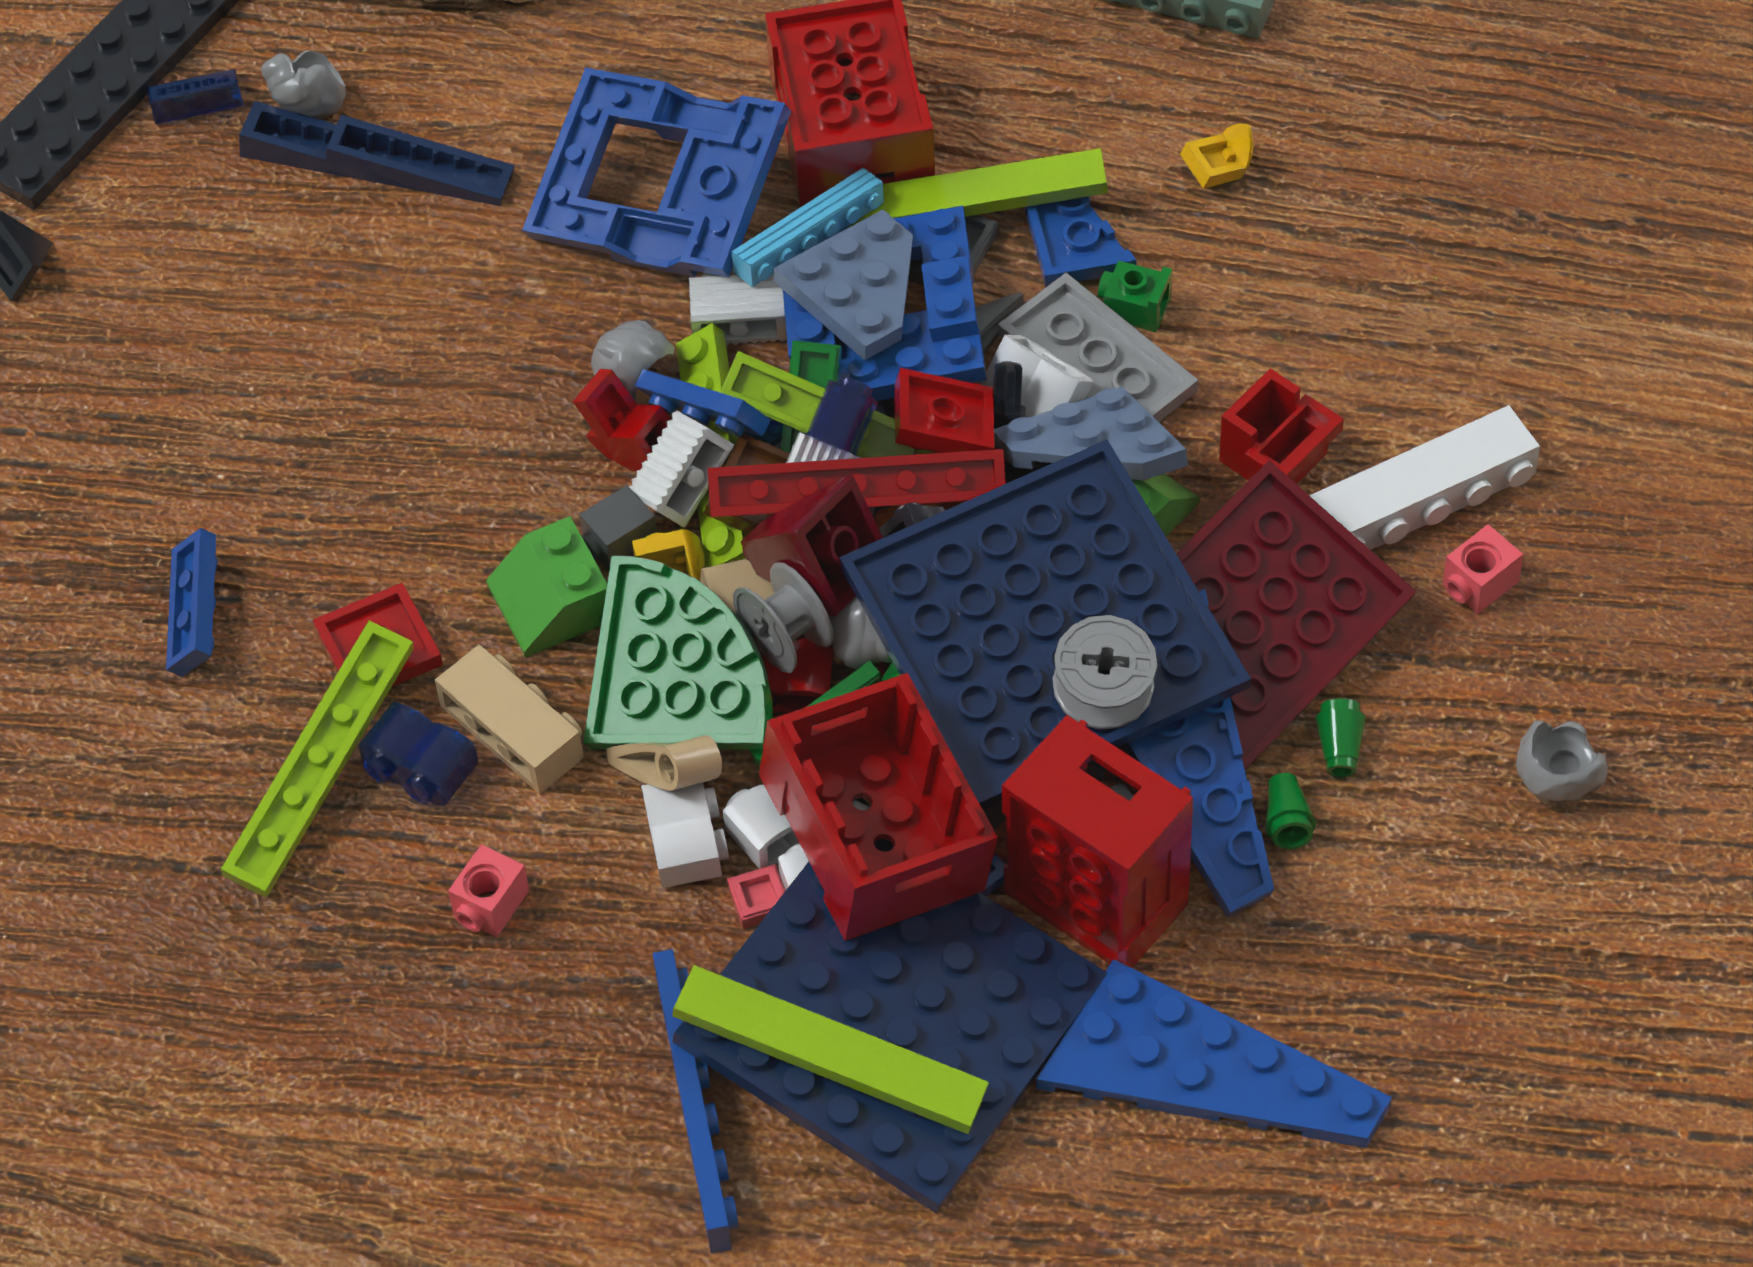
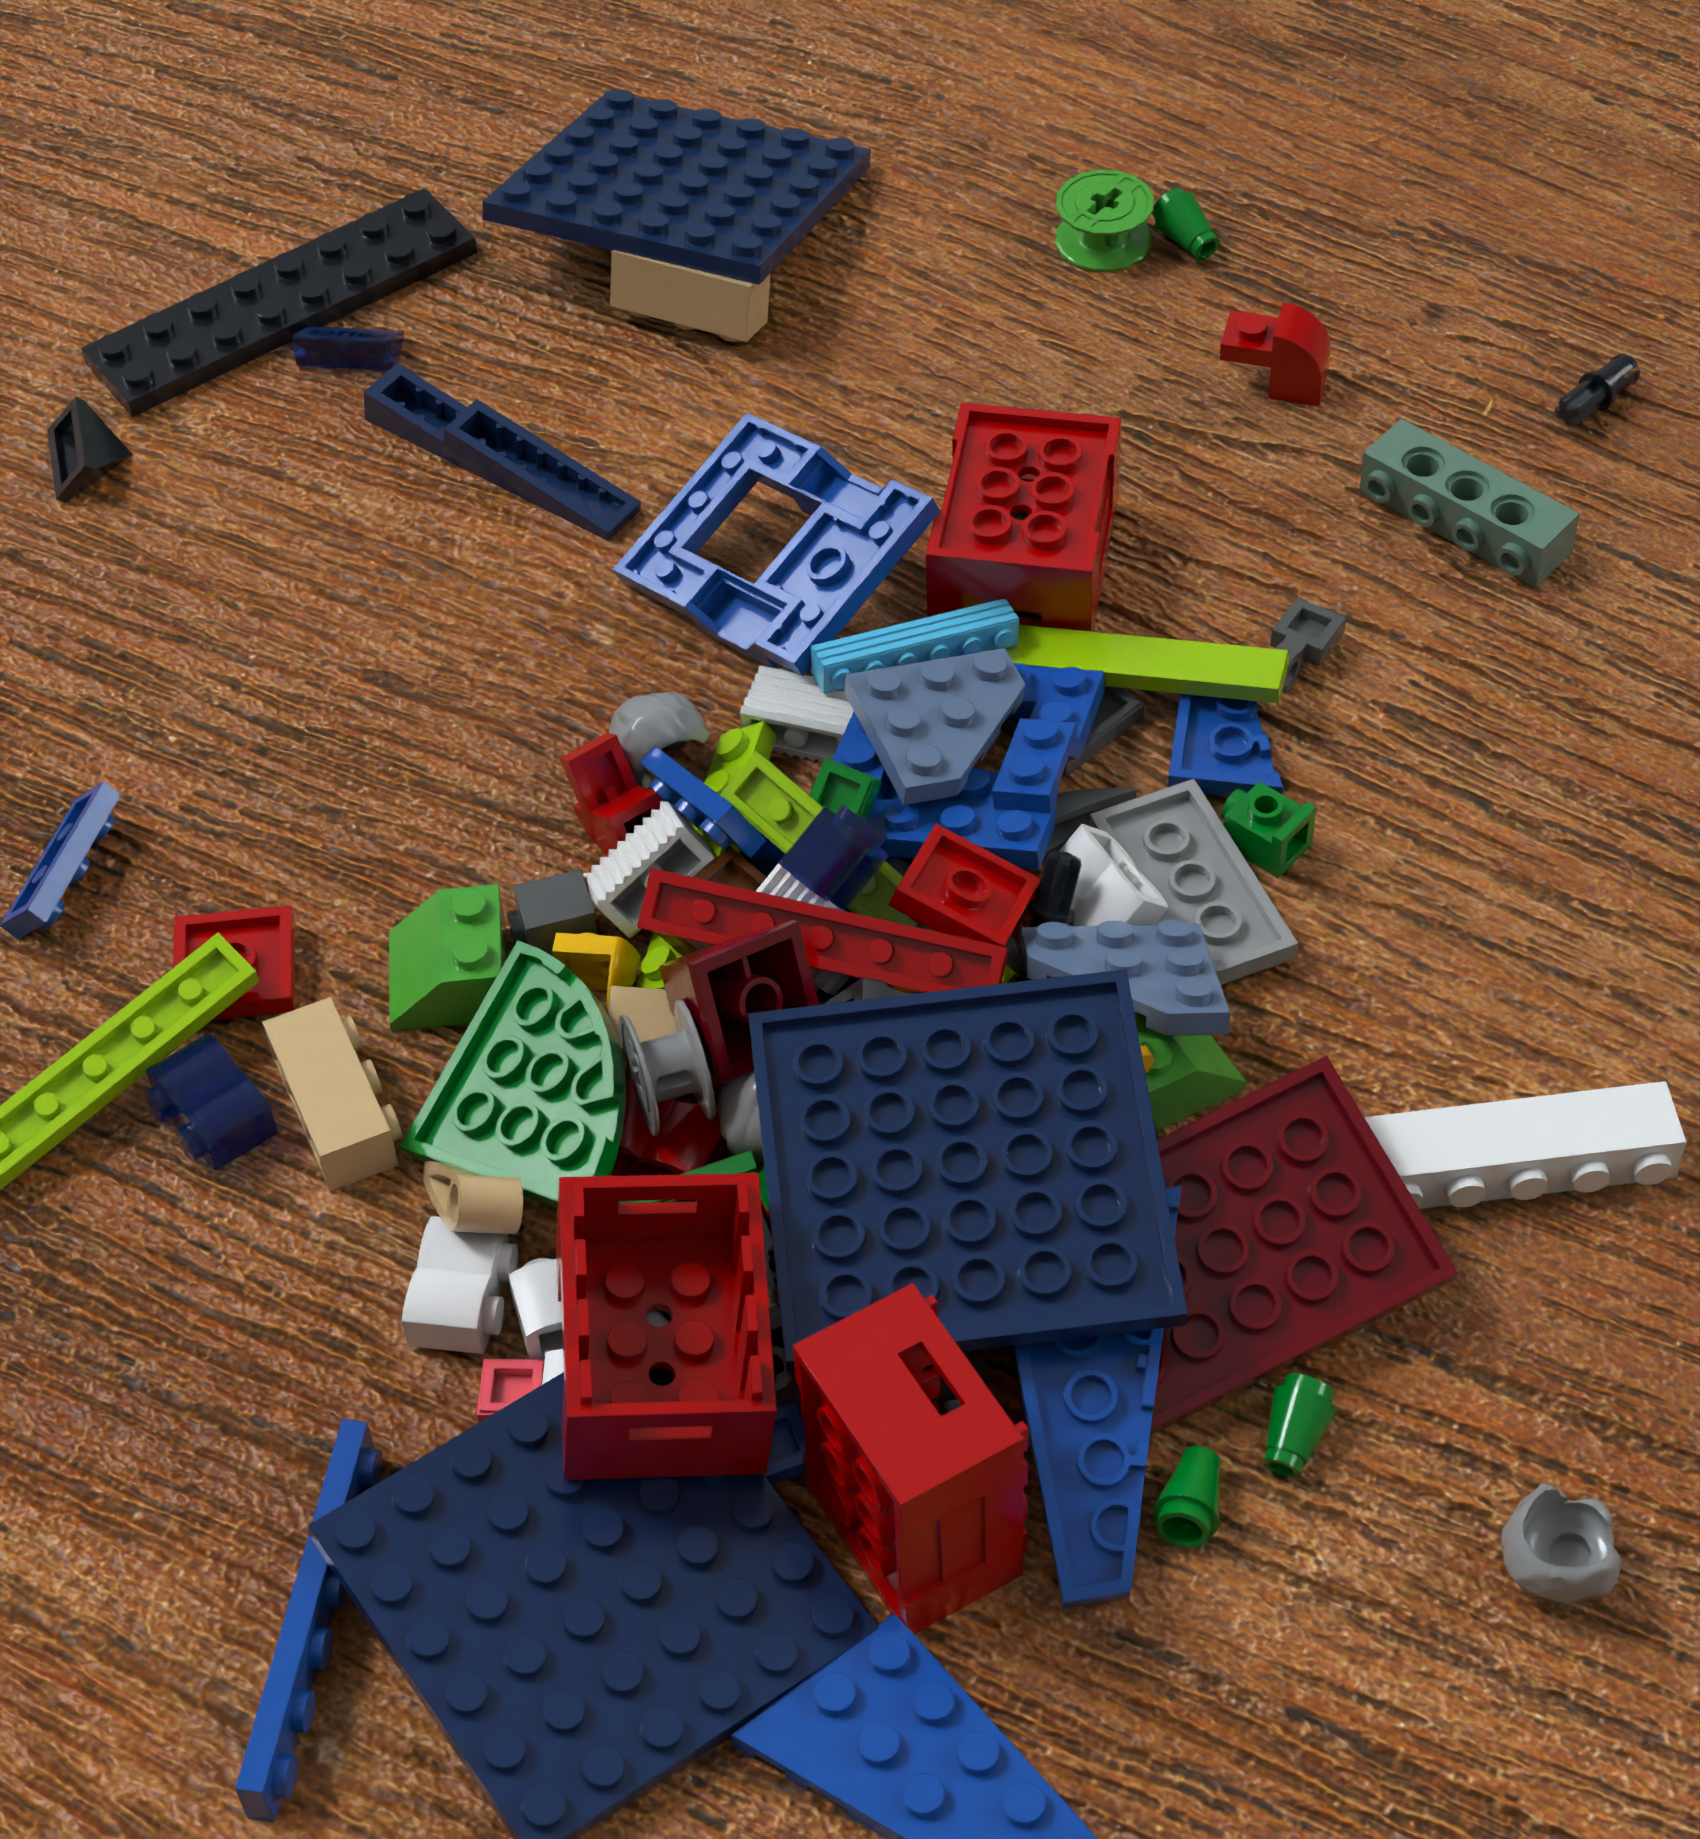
camera: 20 degrees right, 5 degrees down
(305, 85) = (460, 364): light grey hair -> none
(488, 873) = (203, 1262): coral brick -> none
(830, 1049) = (483, 1613): lime tile -> none
(1101, 127) = (1307, 634): none -> dark grey plate
(1111, 646) = (1000, 1247): light grey piece -> none
(1220, 156) = (1432, 701): yellow plate -> none
(1276, 427) = (1366, 1028): red plate -> none
(1487, 553) = (1566, 1251): coral brick -> none

